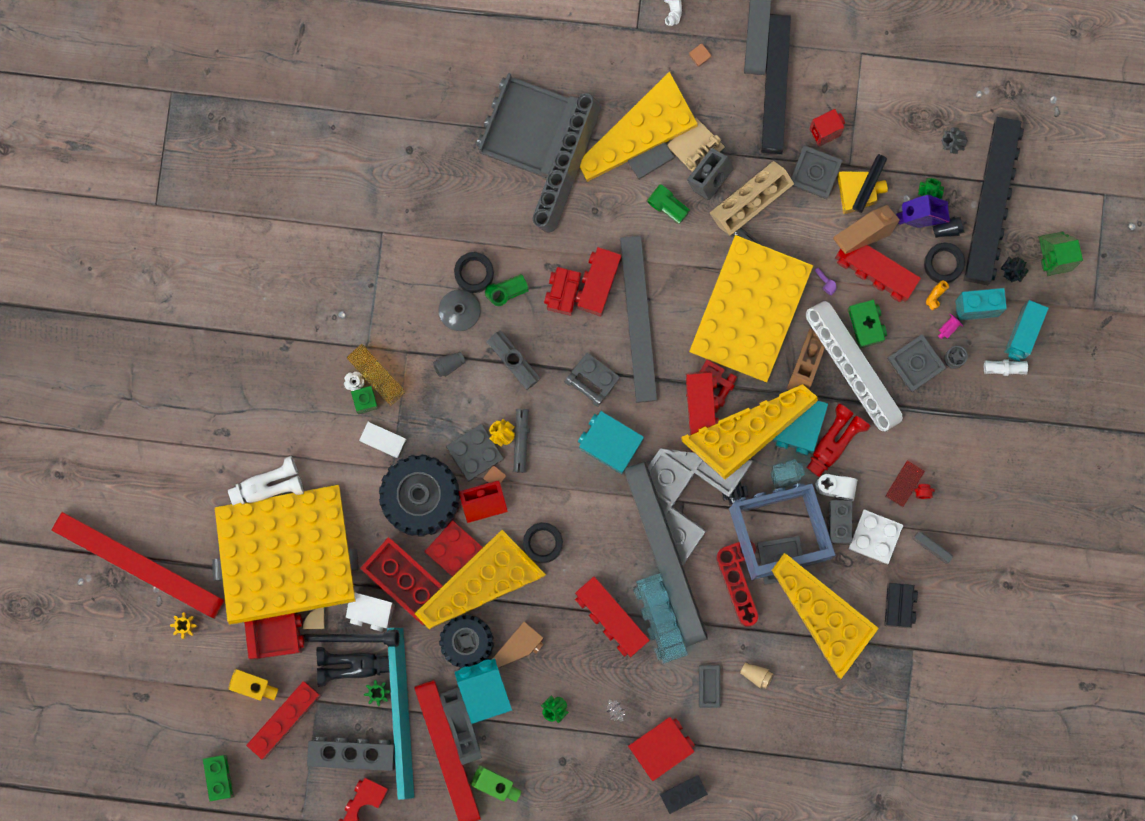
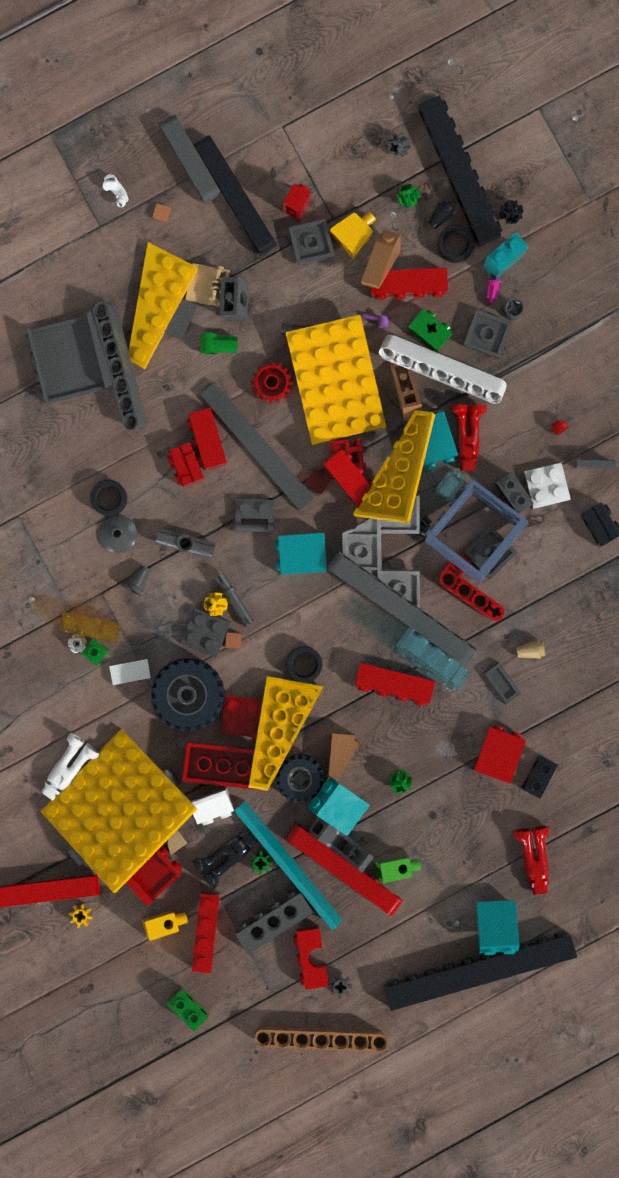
camera: 40 degrees left, 5 degrees up
(390, 638) = (242, 817): black piece -> none
(483, 501) = (238, 665): red brick -> none
(508, 289) = (144, 493): green piece -> none
(671, 388) = (318, 481): none -> clear red tile
(691, 282) = (267, 373): none -> red gear
(751, 198) = (278, 295): tan brick -> none
(831, 621) = (556, 571): yellow wing -> none
(841, 487) = (495, 467): white piece -> none
(869, 183) = (358, 220): black axle -> none
(904, 483) = (541, 430): clear red tile -> none
(924, 212) = (414, 215): dark purple torso -> none
(937, 291) = (465, 269): light orange arm -> none
(1005, 367) = (555, 290): white pin -> none
(1026, 330) = (552, 252): teal brick -> none
(1059, 253) = (536, 175): green wedge -> none

